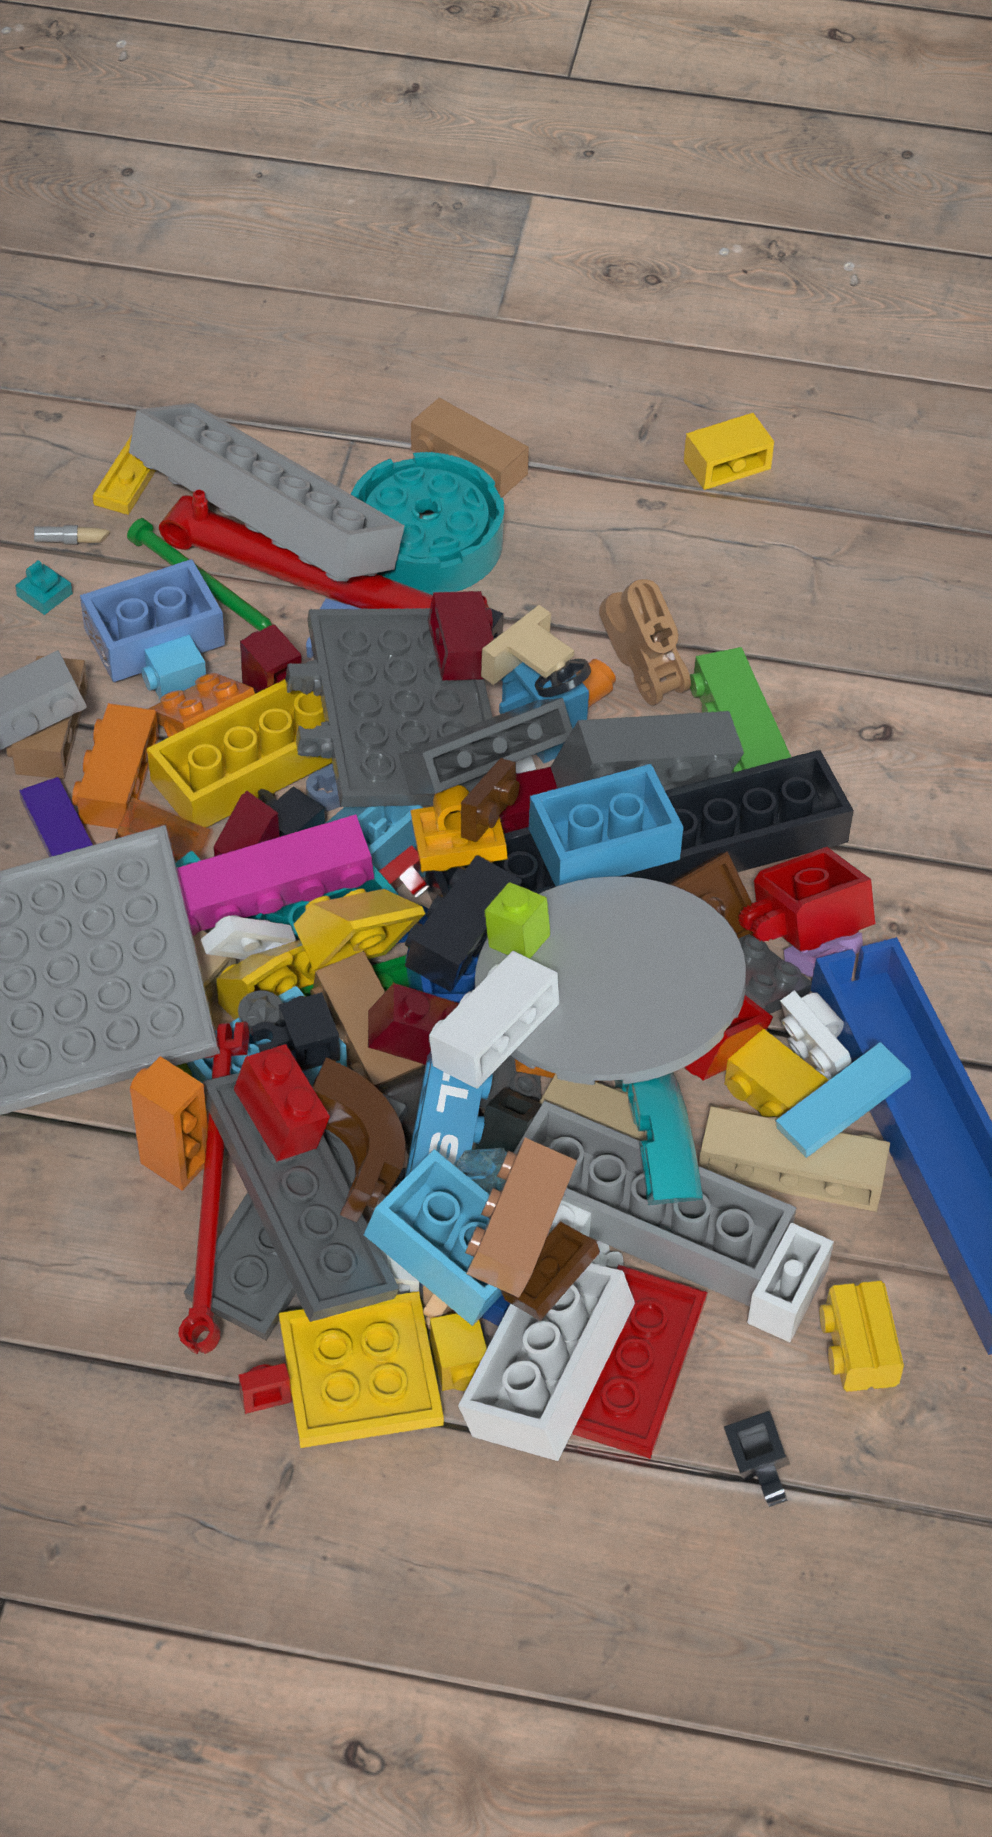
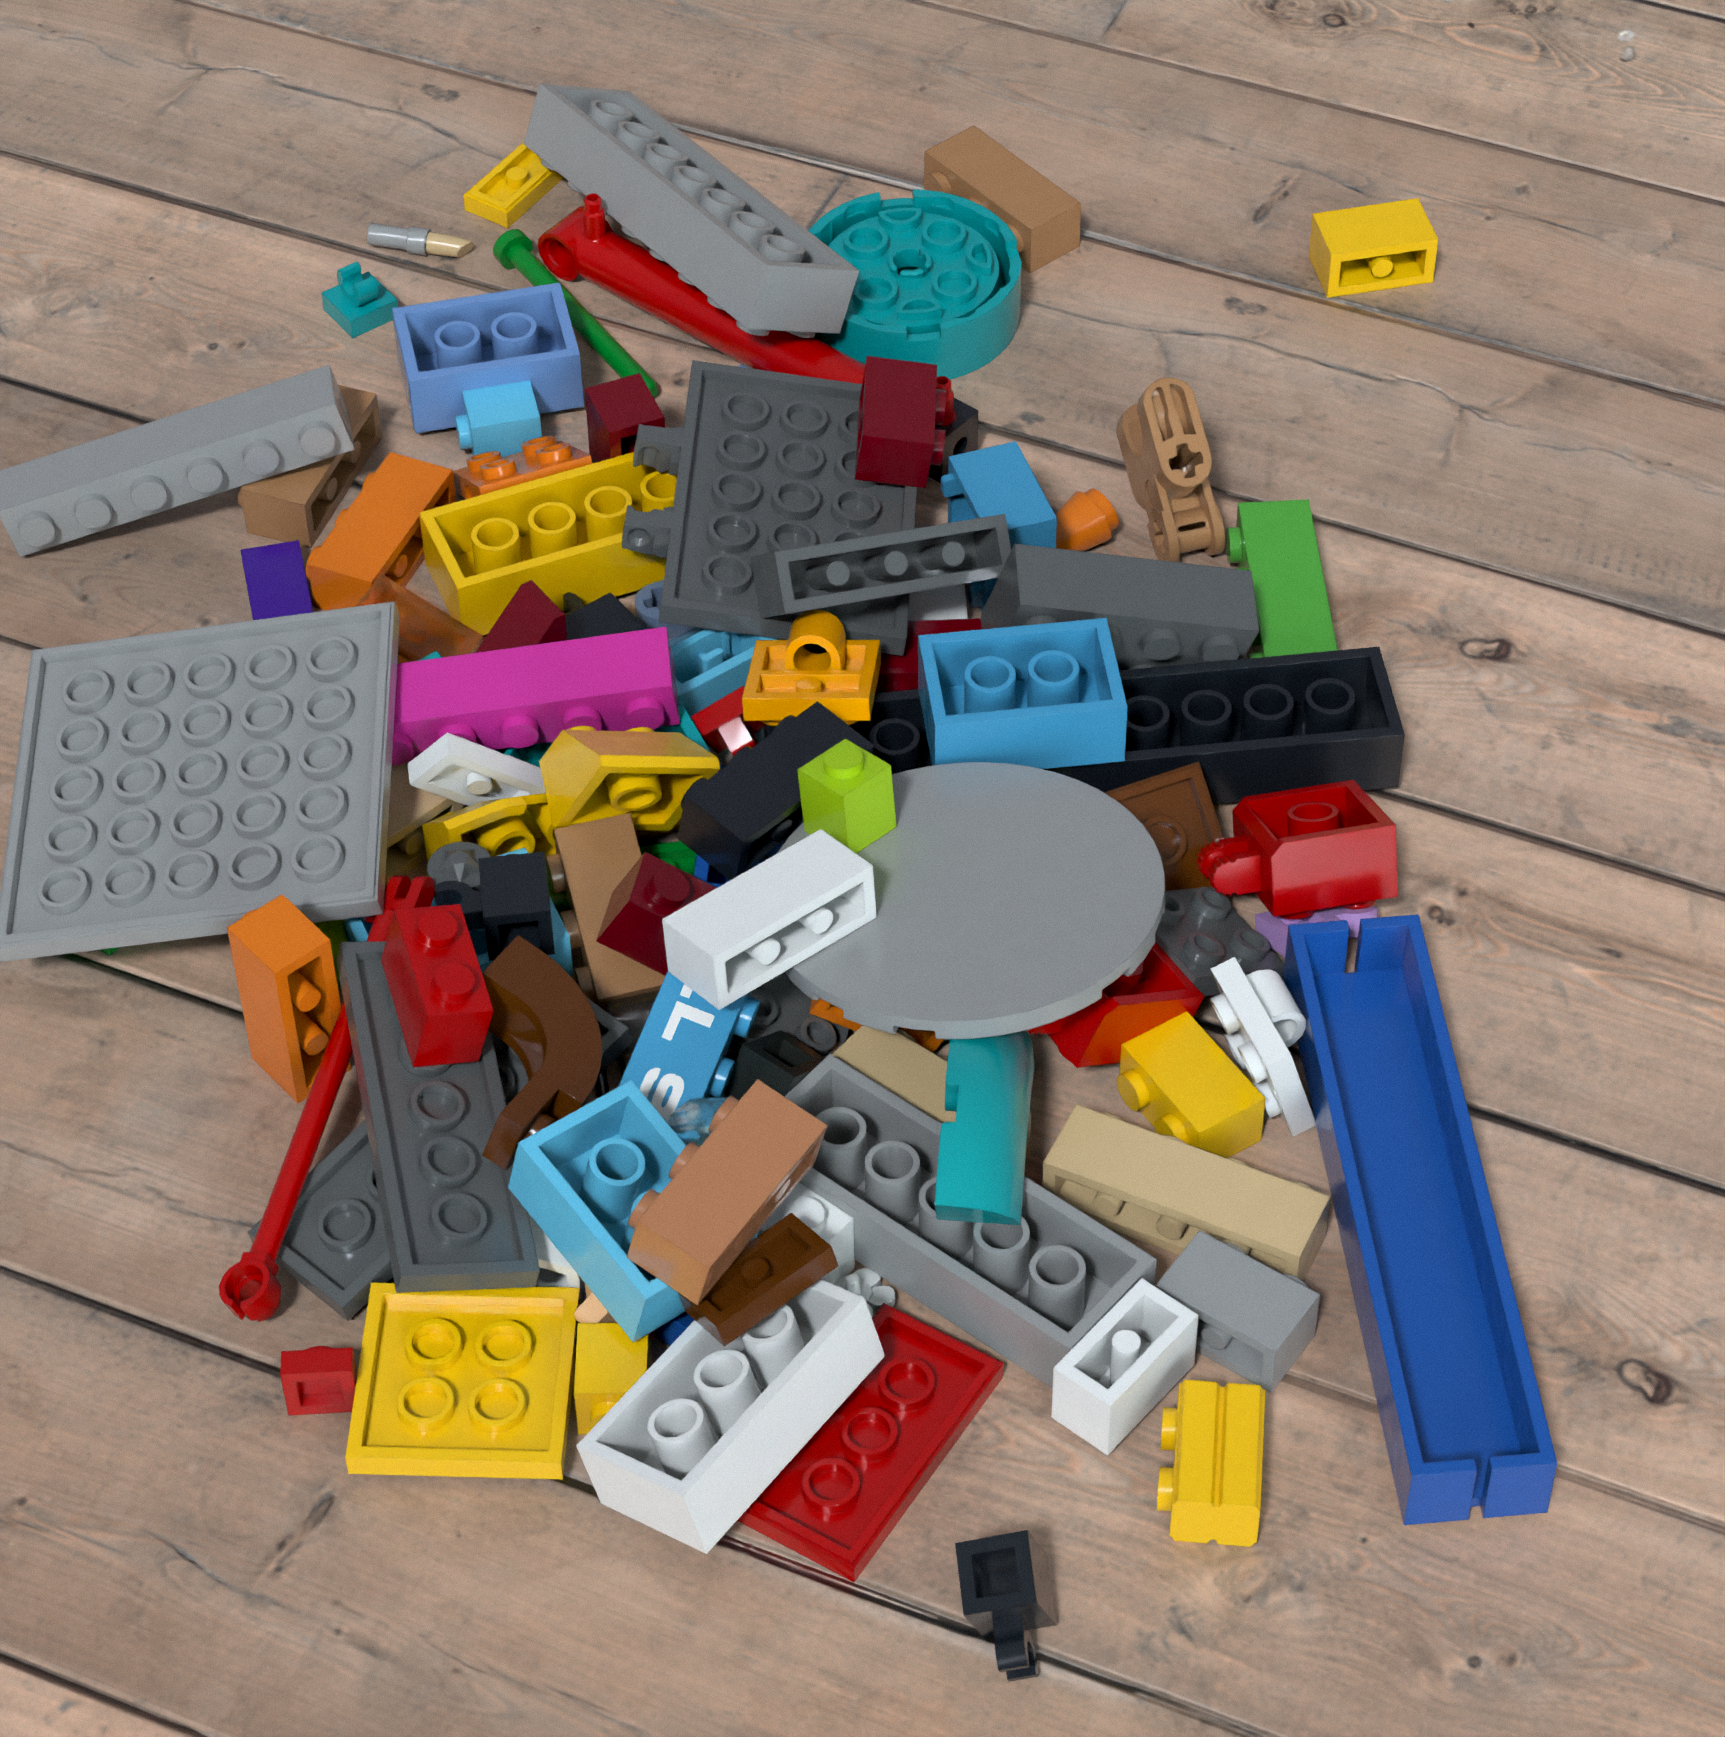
camera: 15 degrees right, 5 degrees down
(489, 799) = (860, 634): reddish brown plate -> none
(534, 645) = (990, 443): tan piece -> none
(843, 1099) = (1270, 1122): medium azure tile -> none
(858, 1226) = (1246, 1311): none -> light grey brick

